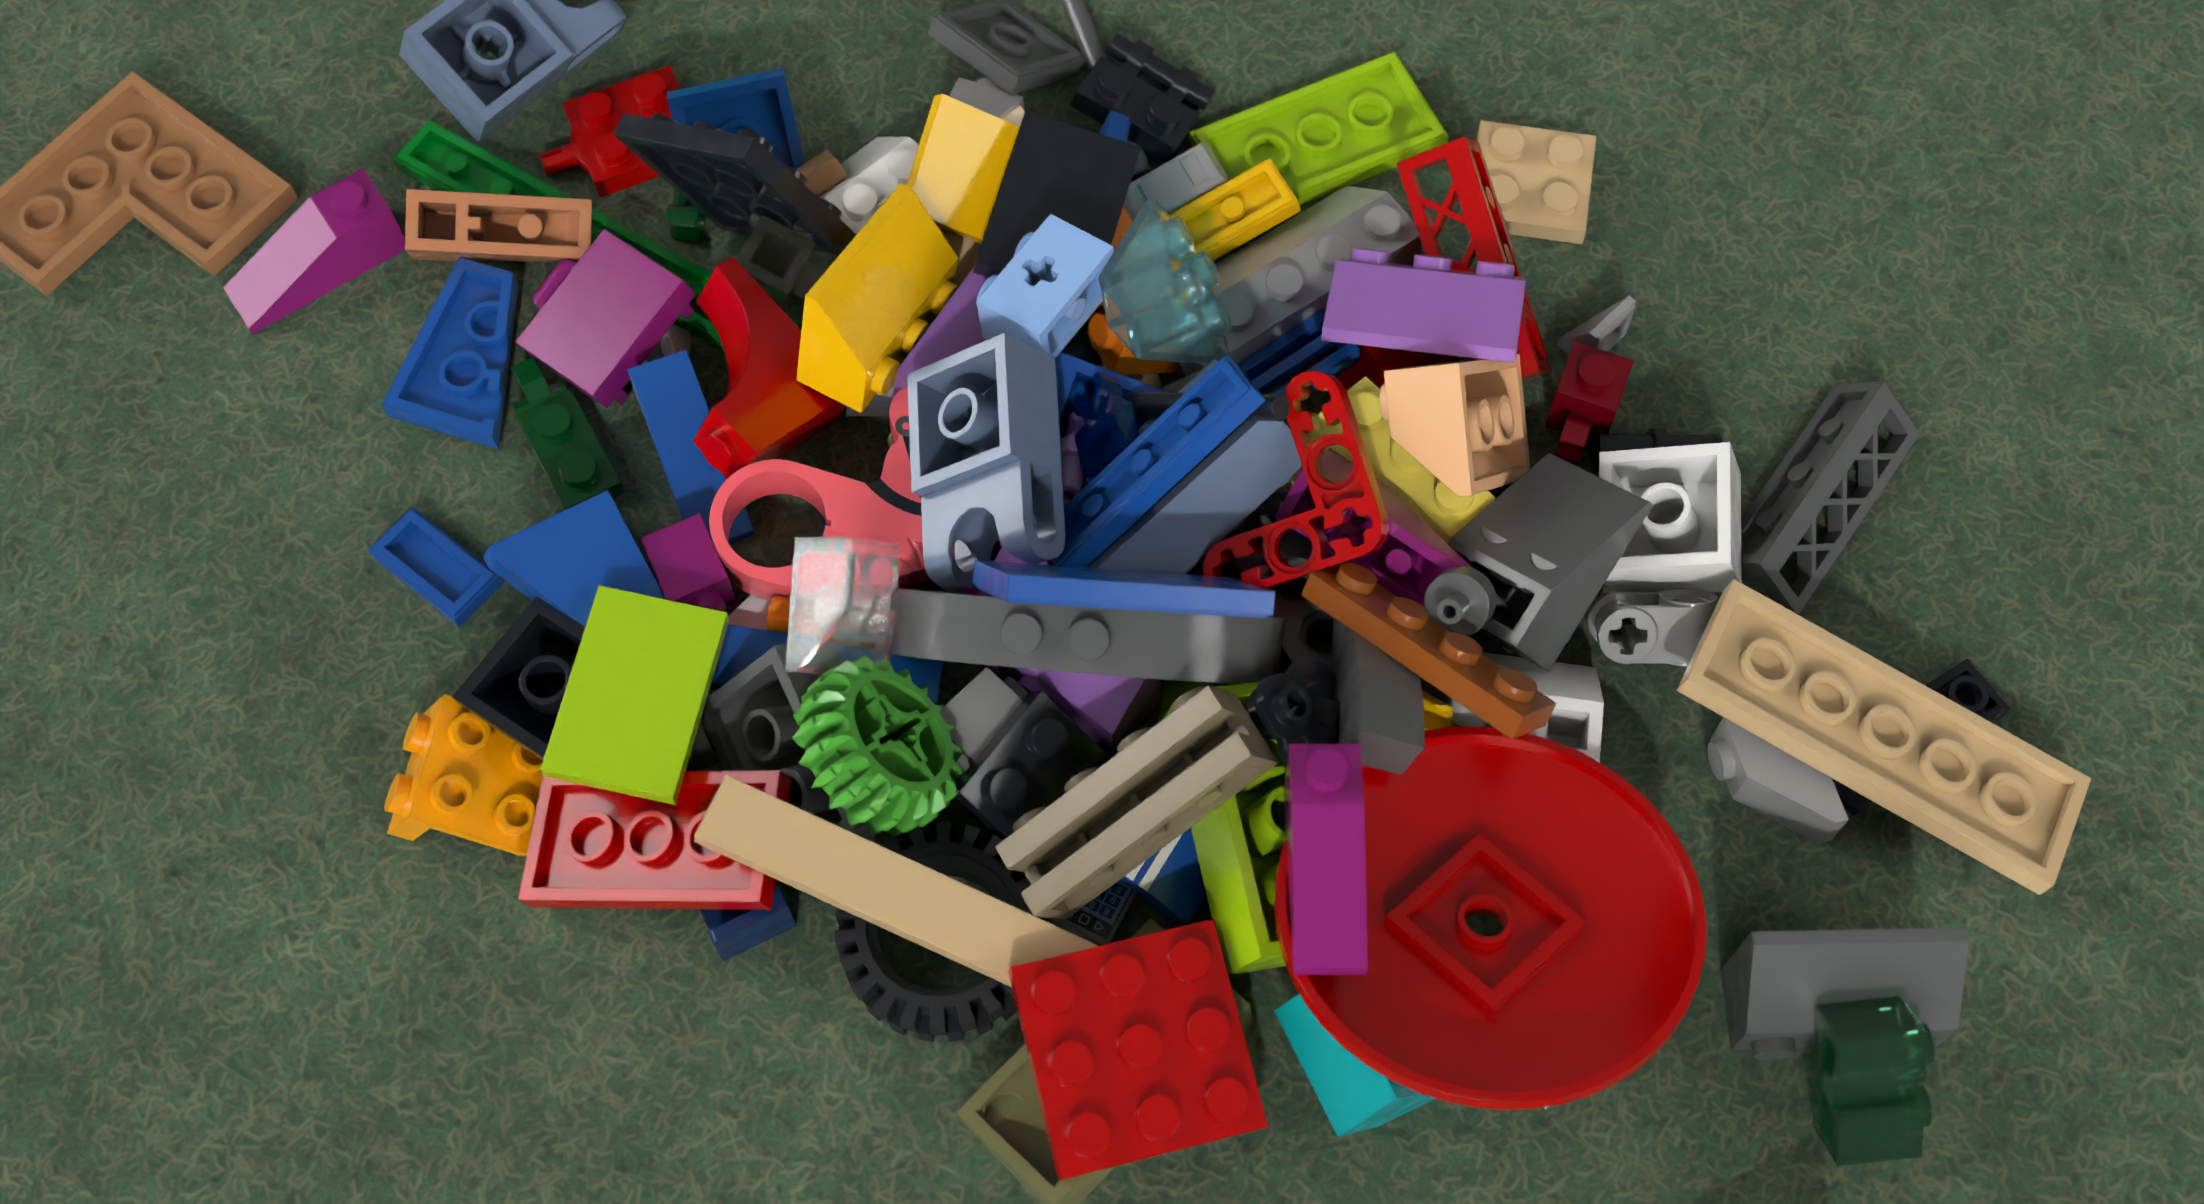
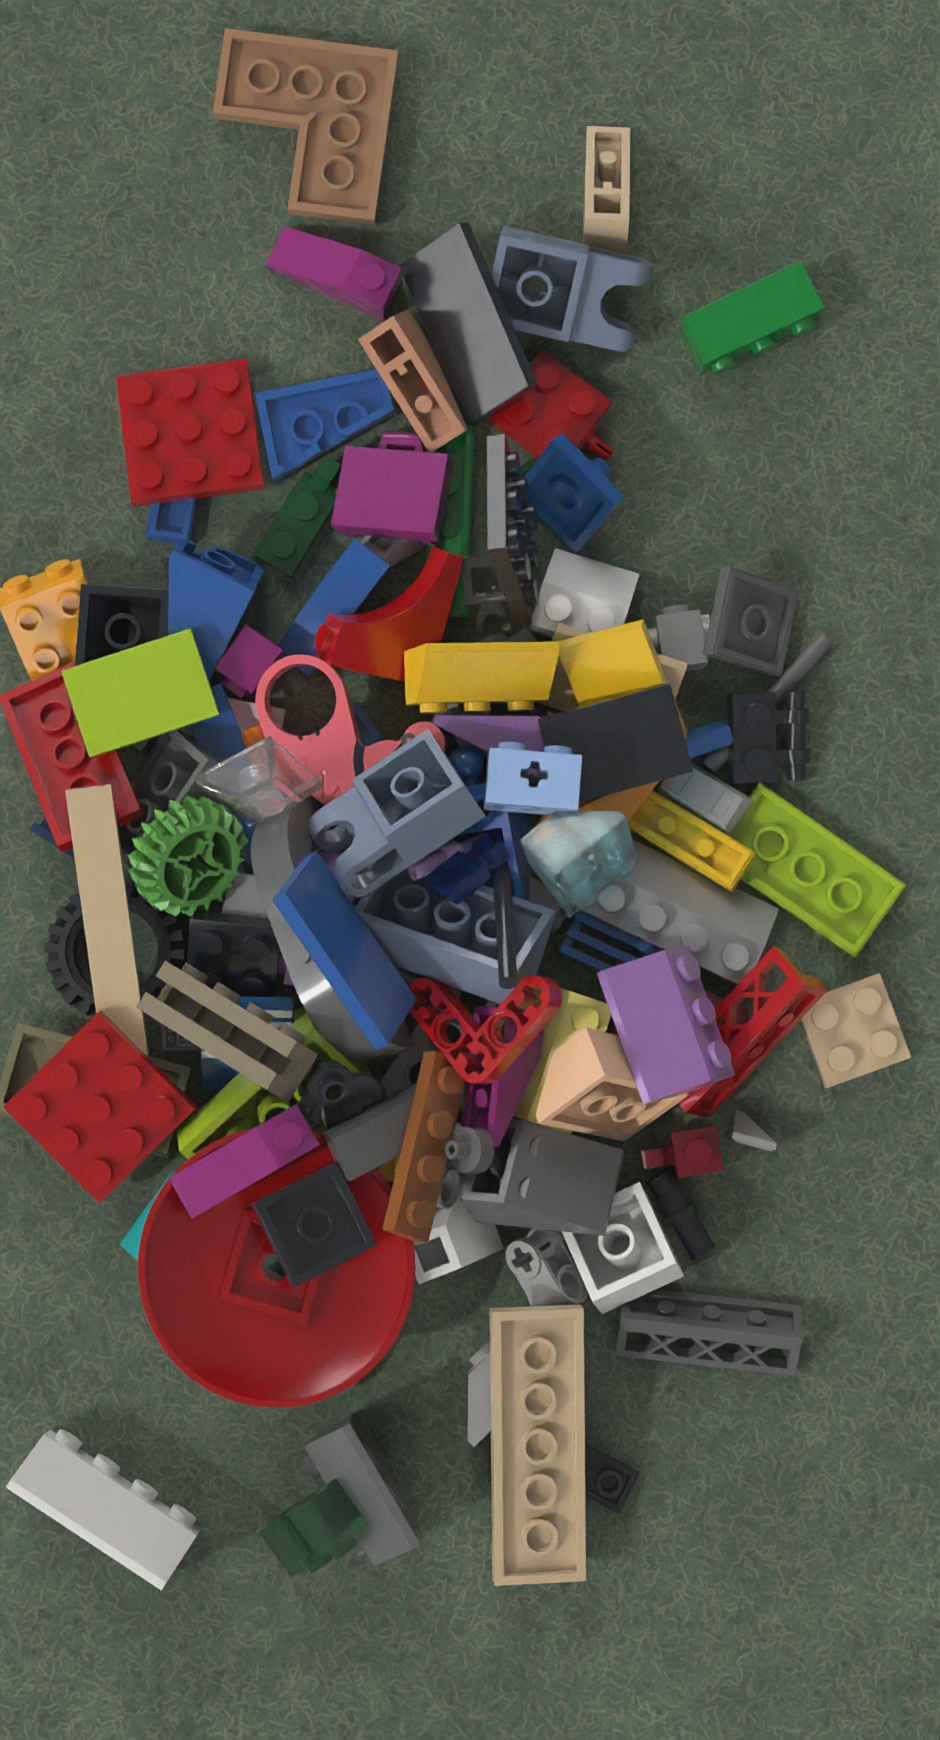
camera: 60 degrees right, 20 degrees up
(371, 506) = (189, 432): none -> red plate
(476, 133) = (467, 324): none -> tile
(822, 173) = (569, 559): medium nougat tile -> none
(1156, 461) = (446, 921): blue tile -> none
(1459, 825) = (314, 1224): none -> black plate

